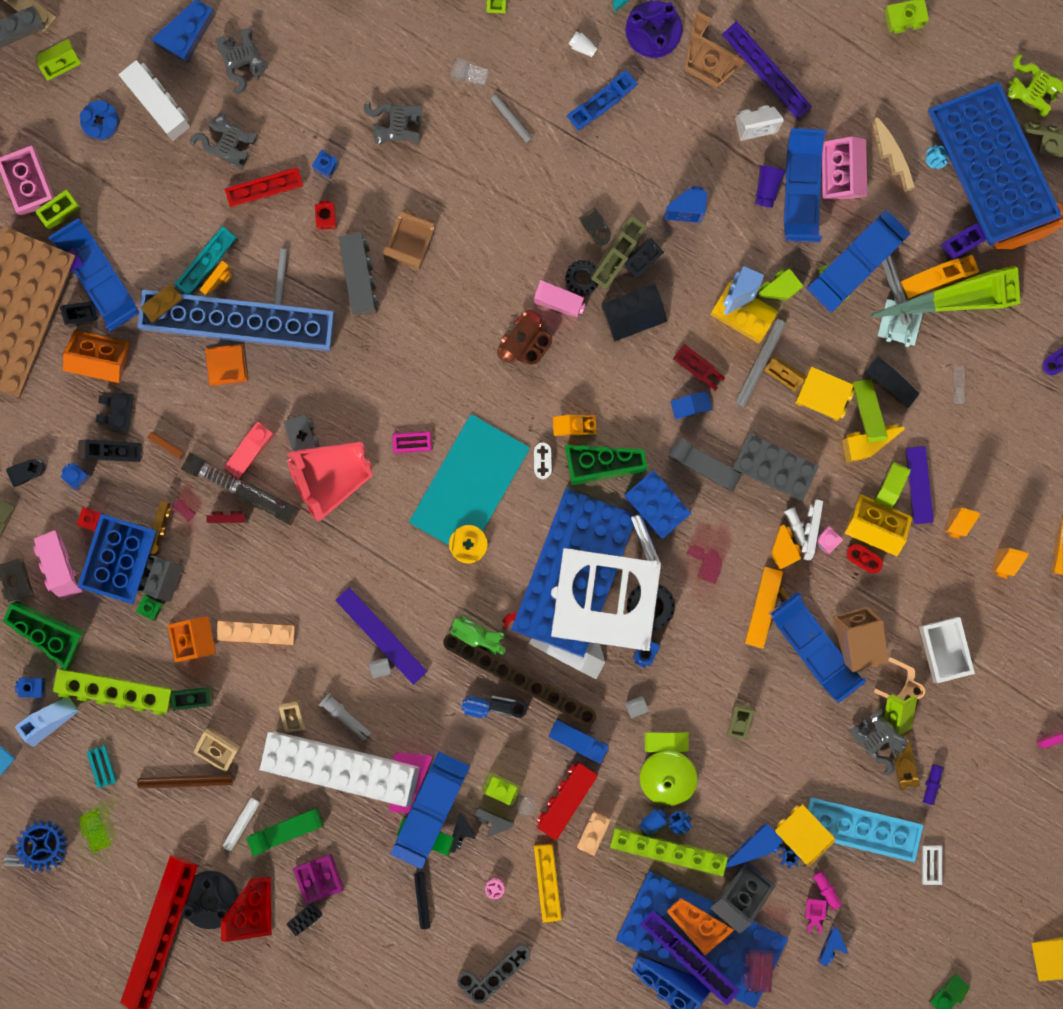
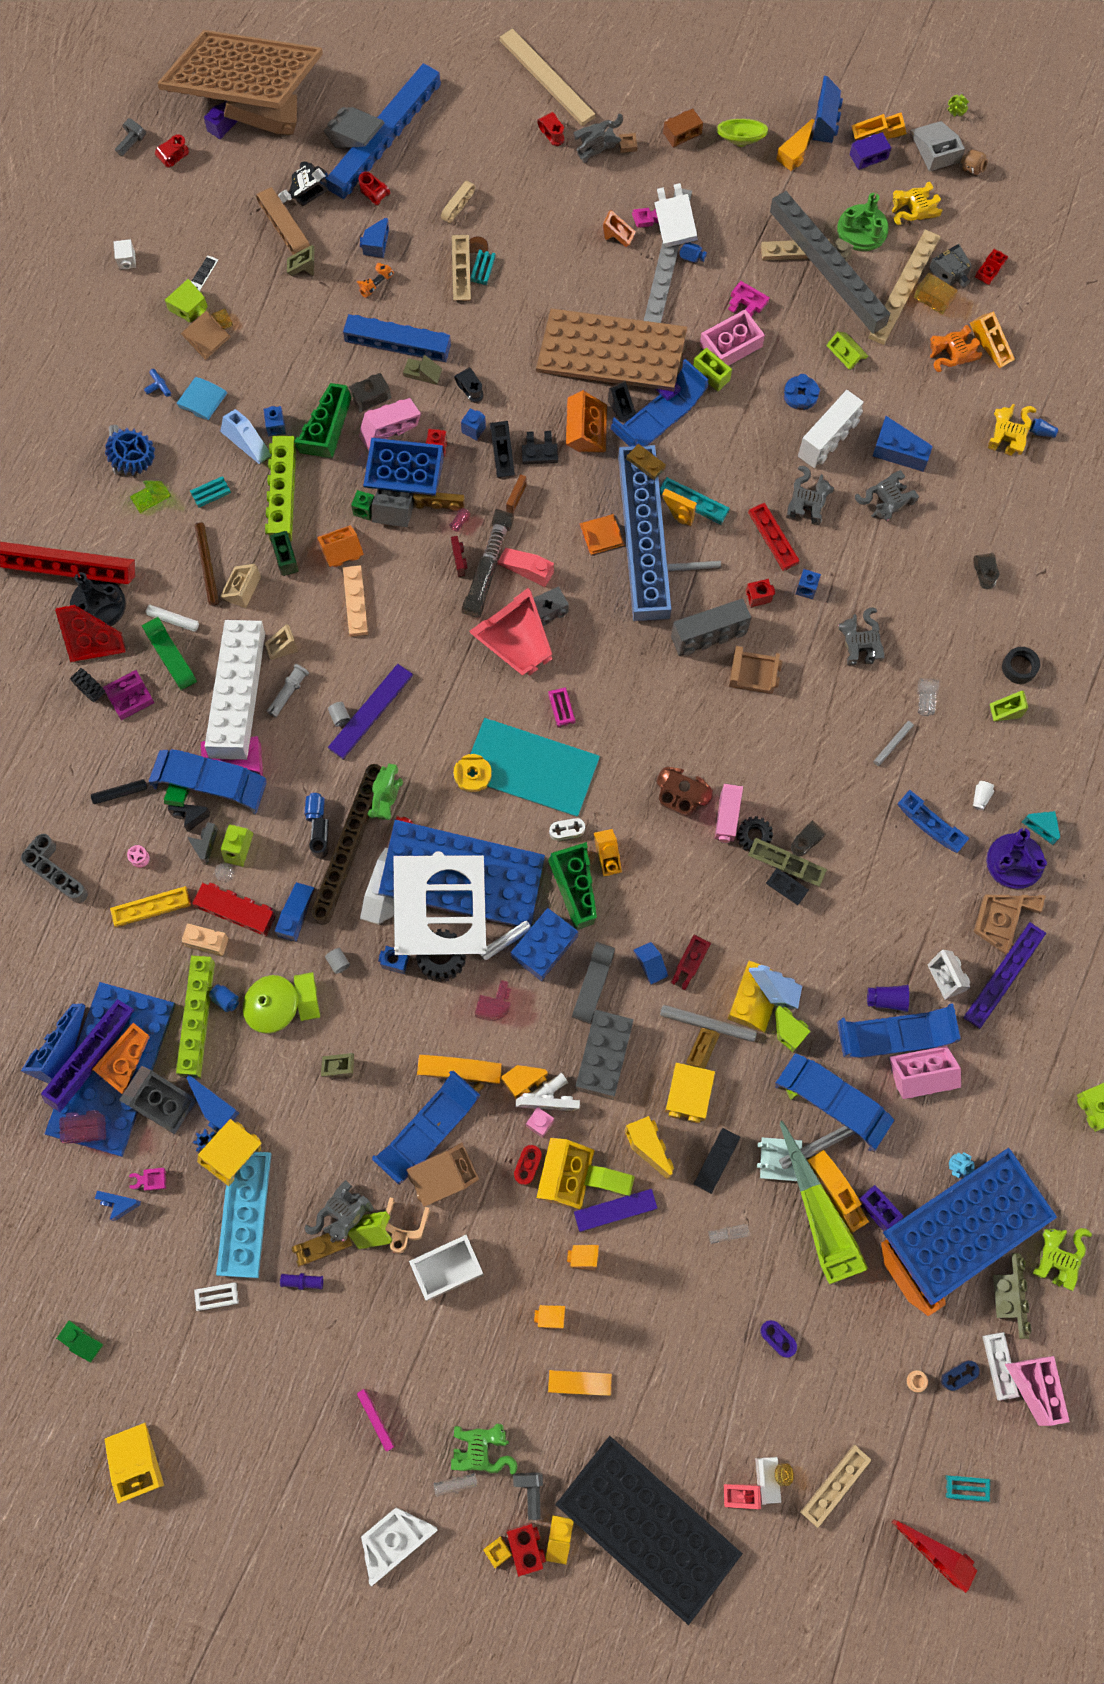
camera: 80 degrees right, 15 degrees down
(634, 312) = (731, 889): black slope -> none
(680, 822) = (226, 1023): blue gear -> none
(688, 206) = (849, 916): blue slope -> none
(827, 890) = (175, 1188): dark pink pin -> none
(870, 411) = (681, 1138): lime tile -> none
(889, 148) = (956, 1115): tan slope -> none

